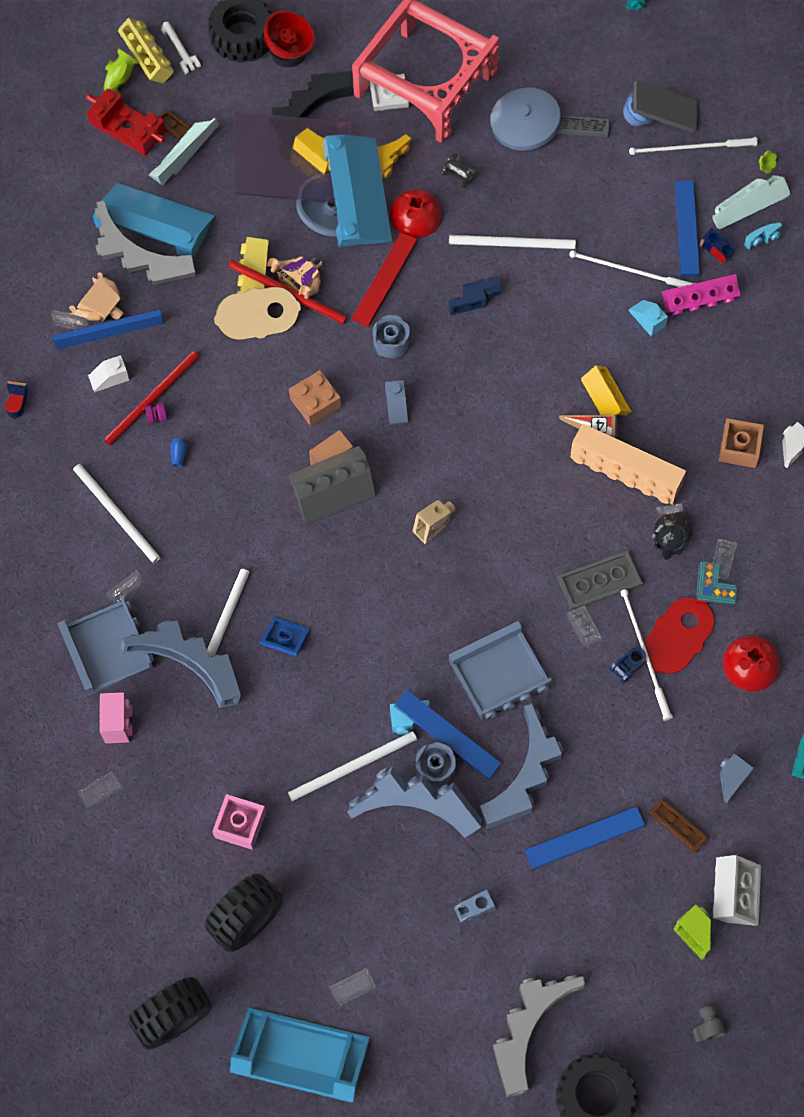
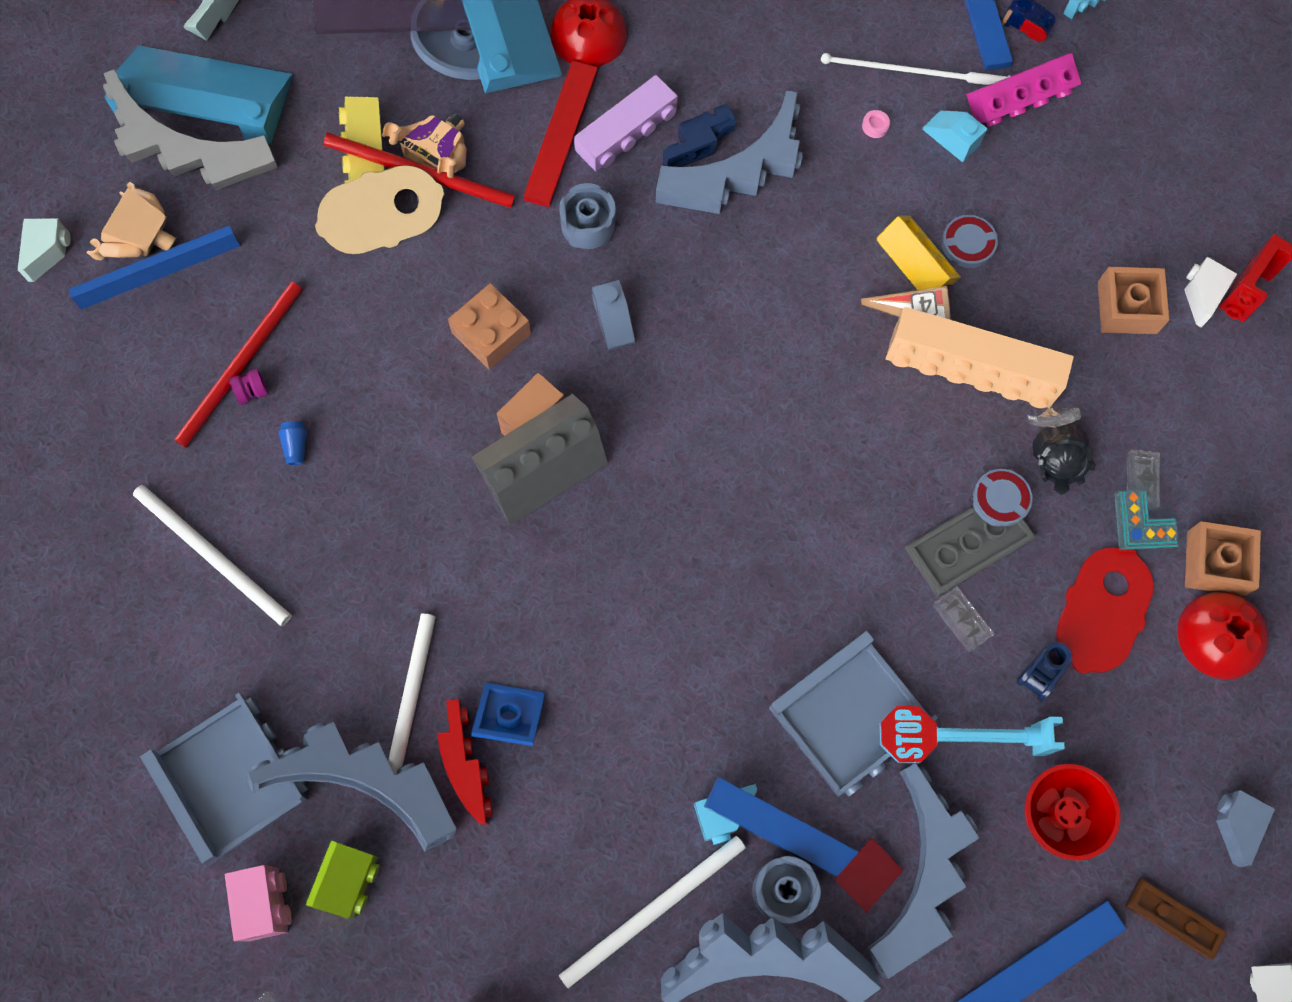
camera: 15 degrees left, 5 degrees up
(18, 395) = (28, 396): leg -> none
(38, 305) = (41, 246): none -> light aqua slope
(69, 320) = (92, 261): clear tile -> none
(108, 374) = (166, 336): white slope -> none
(124, 587) = (241, 675): clear tile -> none
(167, 714) = (343, 881): none -> lime slope
(251, 664) = (465, 776): none -> red slope
(428, 279) = (626, 123): none -> lavender brick
(432, 520) = (704, 490): tan torso -> none
(476, 327) = (709, 185): none -> sand blue arch
(489, 766) = (868, 875): none -> dark red sticker
(513, 242) = (735, 53): white piece -> none
(532, 686) = (912, 735): none -> medium azure piece
(597, 302) = (876, 124): none -> bright pink tile
(622, 736) = (1088, 809): none -> red piece
(625, 554) = (1002, 497): none -> sand blue tile
(643, 389) = (969, 241): none -> sand blue tile
(658, 691) = (1096, 703): white piece -> none
(759, 614) = (1223, 558): none -> nougat brick

